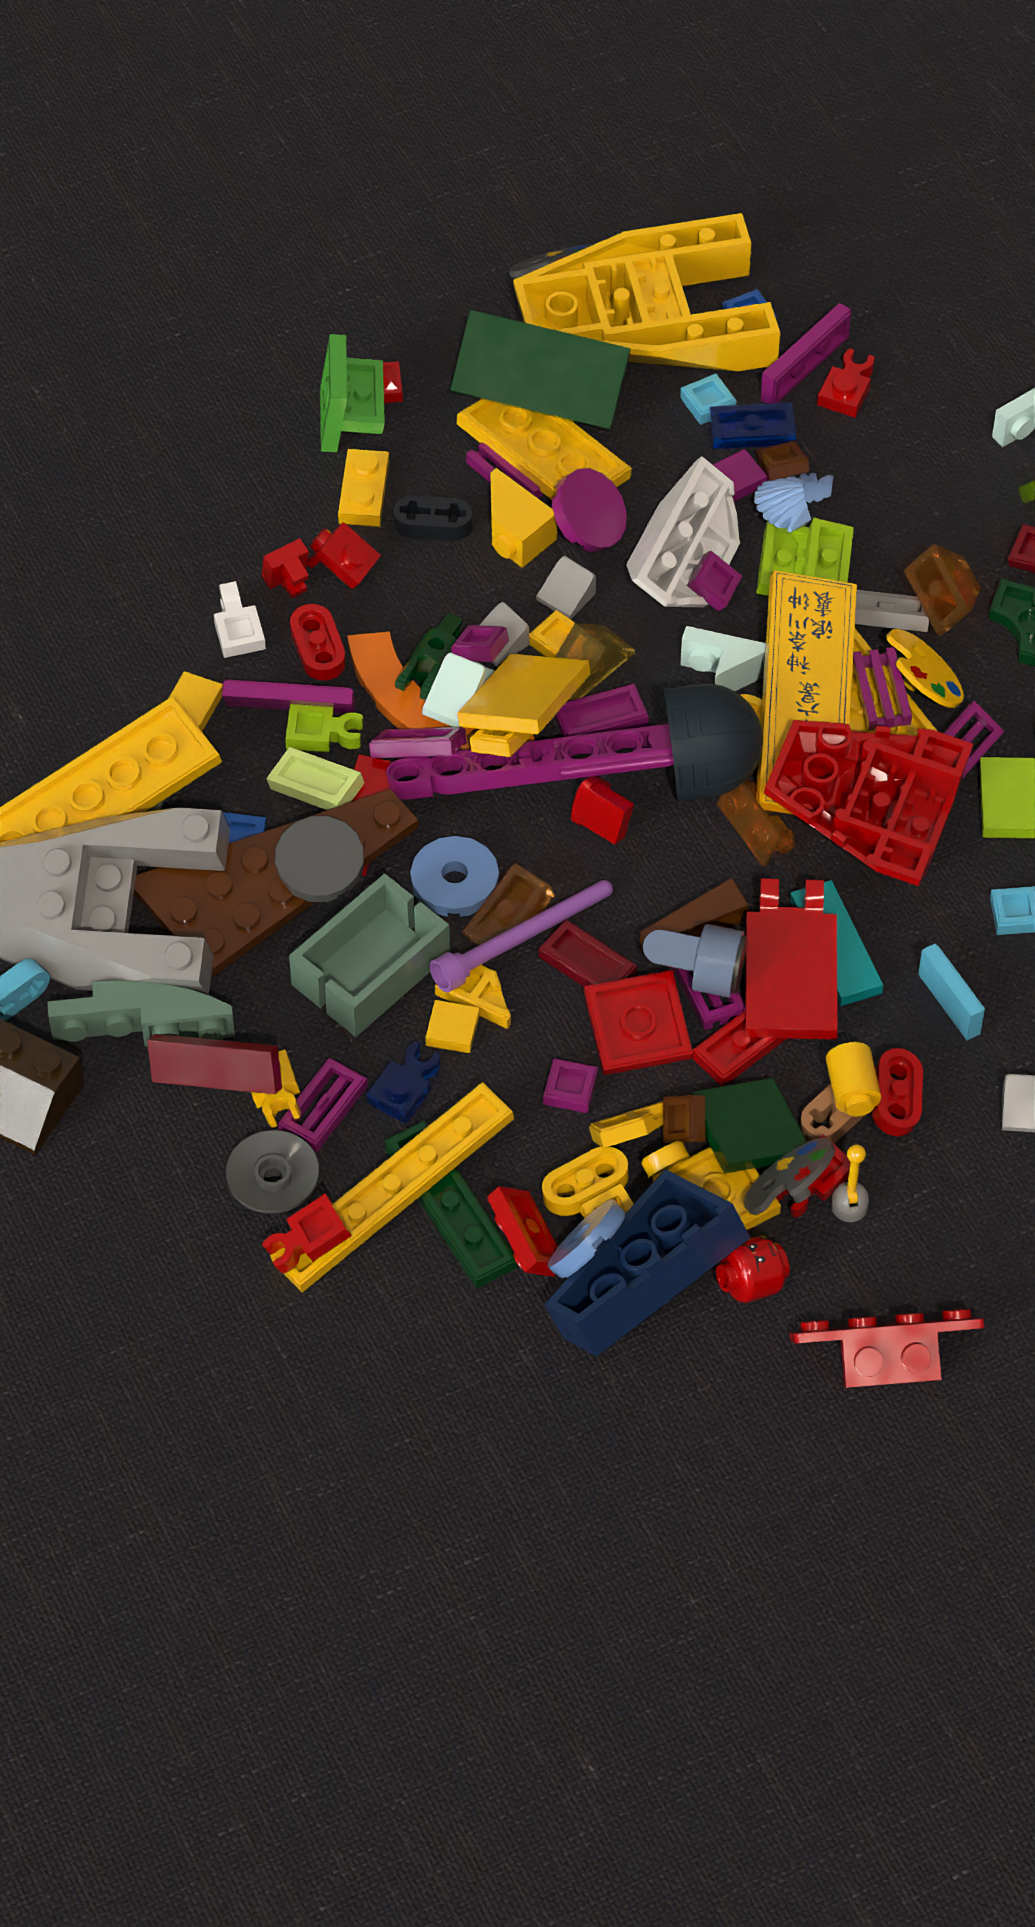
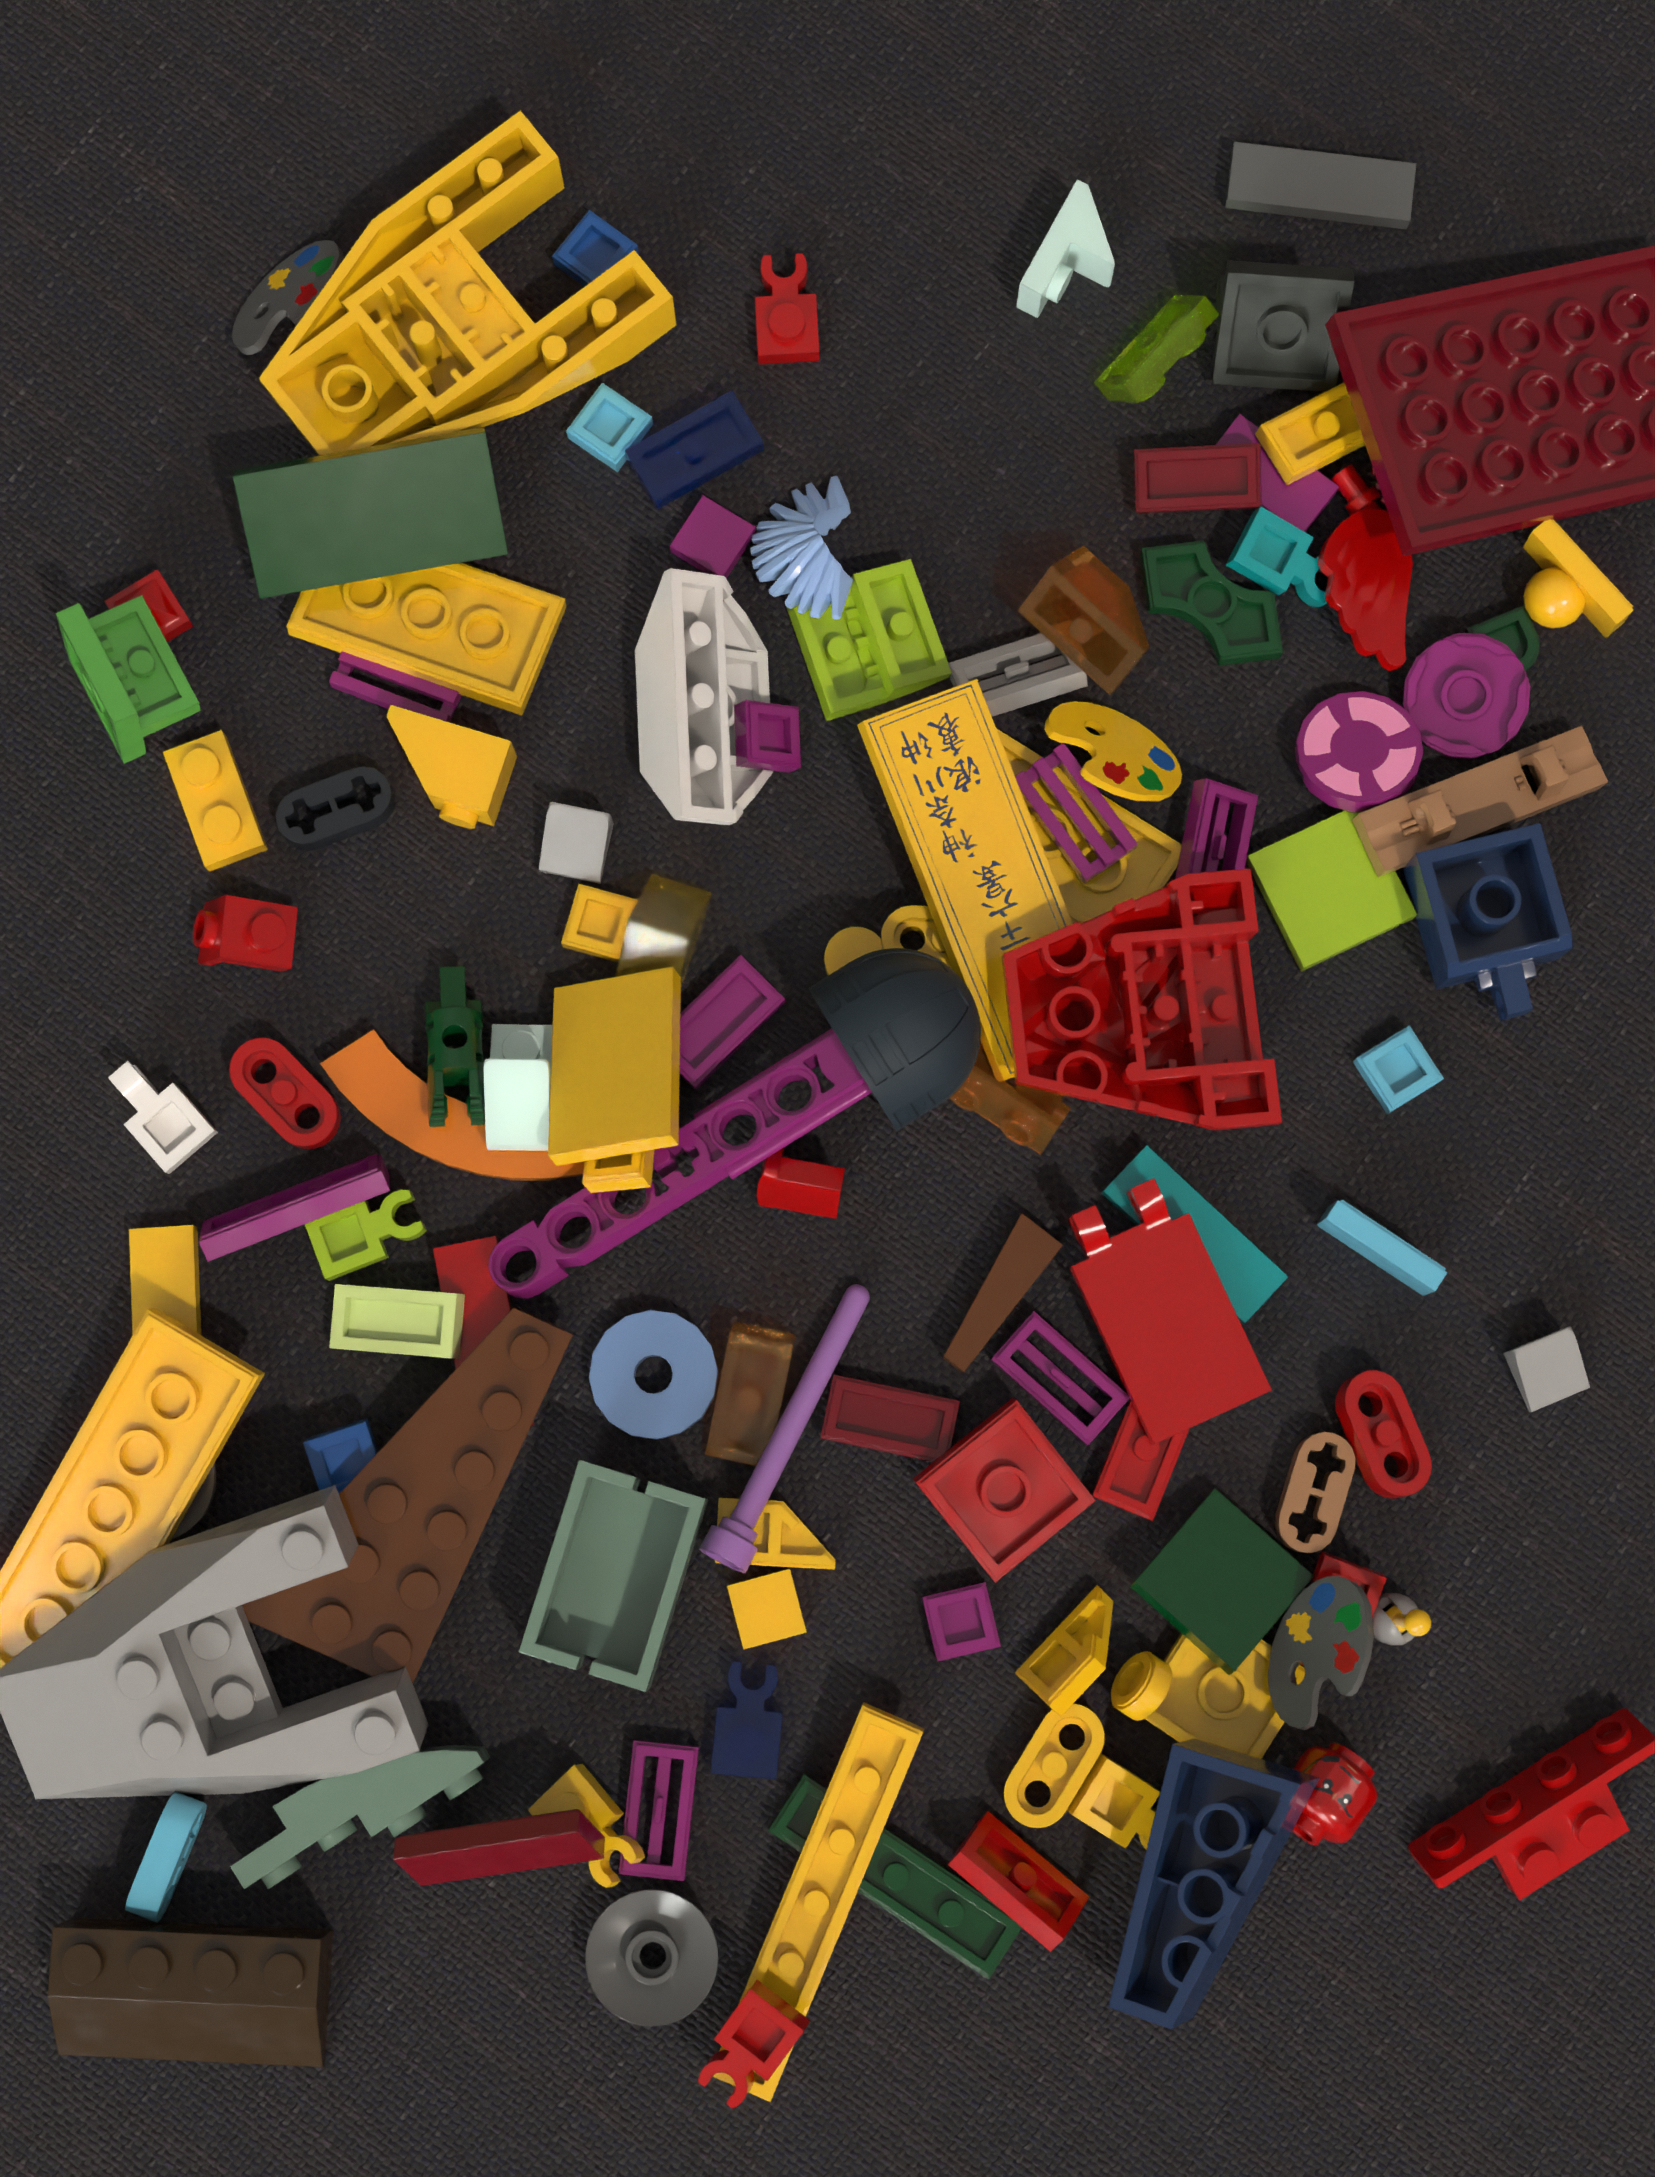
camera: 25 degrees left, 25 degrees up
(287, 567) = (182, 992): red tile -> none
(319, 858) = (477, 1471): dark grey tile -> none
(418, 742) = (506, 1210): magenta tile -> none
(481, 642) = (509, 999): magenta tile -> none
(517, 630) = (523, 961): light grey slope -> none
(585, 1238) = (1116, 1887): medium blue tile -> none
(589, 509) = (548, 708): magenta tile -> none
(684, 1119) = (1140, 1619): reddish brown tile -> none
(713, 958) = (1067, 1376): sand blue piece -> none
(732, 658) = (859, 855): light aqua slope -> none
(782, 460) = (762, 490): reddish brown tile -> none
(806, 354) = (712, 296): magenta tile -> none
(853, 1078) = (1332, 1463): yellow brick -> none

